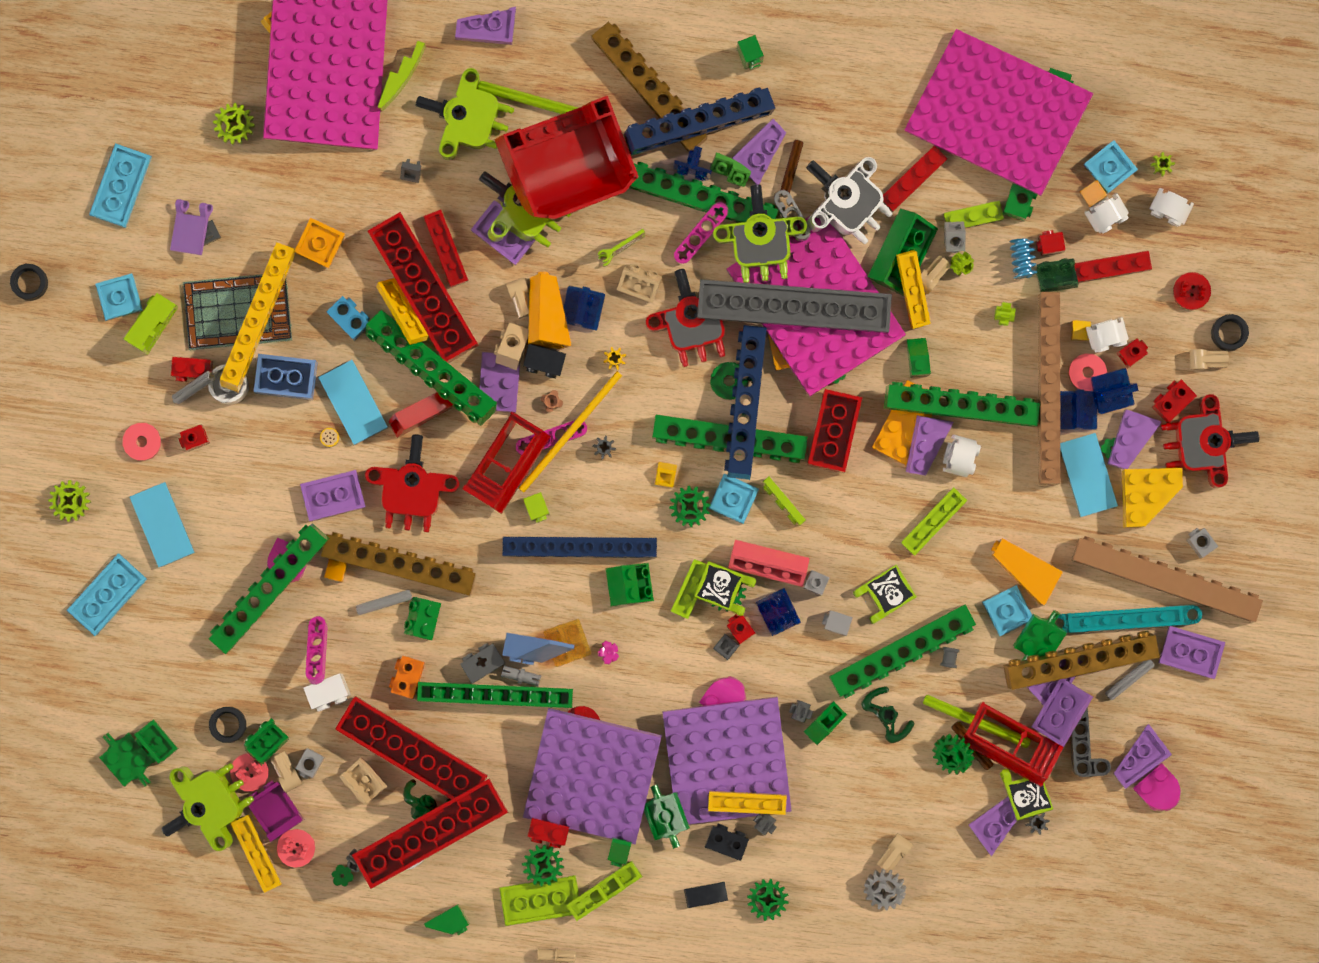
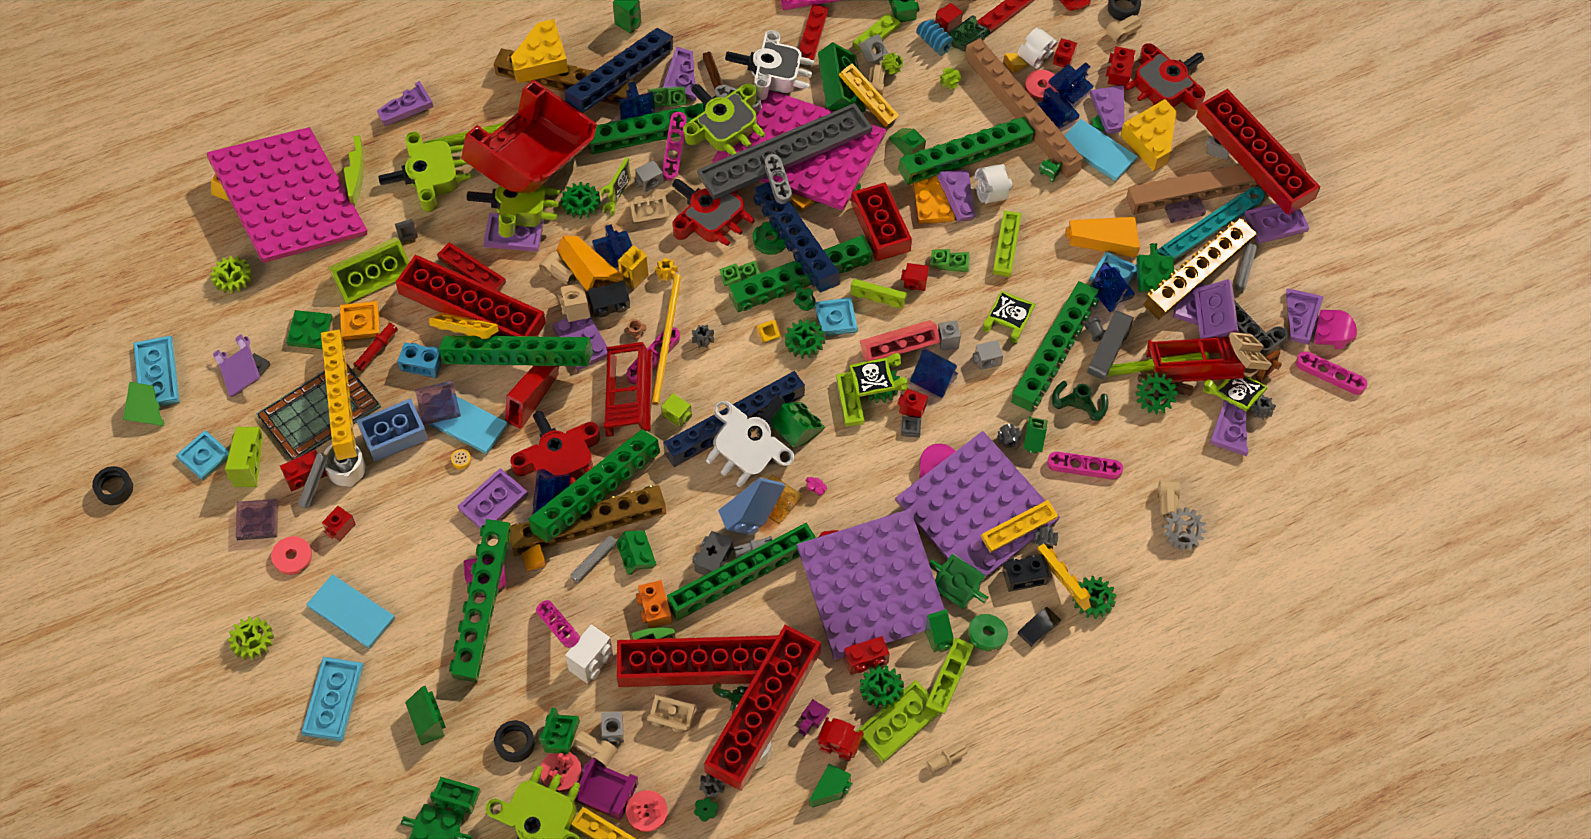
camera: 30 degrees left, 25 degrees down
(90, 218) = (142, 405): none -> bright green slope
(130, 390) = (257, 519): none -> plate
(168, 661) = (425, 716): none -> green slope
(272, 222) = (307, 329): none -> green plate
(326, 275) = (380, 341): none -> red pin
(338, 374) = (437, 402): none -> clear purple plate
(357, 194) = (369, 270): none -> lime slope
(379, 524) = (548, 487): none -> clear blue bracket
(394, 708) = (654, 633): none -> bright green slope
(428, 534) = (594, 485): none -> green brick
(475, 852) = (813, 716): none -> magenta plate
(479, 889) = (839, 738): none -> red brick
(574, 580) = (739, 448): none -> white piece
(579, 243) = (580, 200): none -> green gear
(585, 342) = (633, 267): none -> yellow brick
(637, 57) = (540, 54): none -> yellow brick
(659, 248) = (648, 176): none -> light grey brick
(671, 876) = (994, 625): none -> green tile
(678, 402) = (734, 274): none -> bright green slope
(710, 467) = (805, 299): none -> green brick
(753, 878) = (1069, 581): none -> yellow plate
(773, 324) = (778, 172): none -> light grey beam
(827, 505) = (915, 276): none -> red brick
(845, 779) = (1084, 469): none -> dark pink beam
(872, 505) = (945, 260): none -> bright green slope
(946, 685) = (1110, 345): none -> dark grey beam
(992, 627) = (1111, 287): none -> clear blue bracket
(1027, 469) = (1050, 169): none -> green brick
(1057, 771) = (1248, 351): none -> tan slope
(1073, 786) = (1273, 359): none -> dark orange piece
(1120, 587) = (1185, 210): none -> plate
(1127, 825) = (1329, 376): none -> dark pink beam
(1218, 581) = (1258, 152): none -> red brick

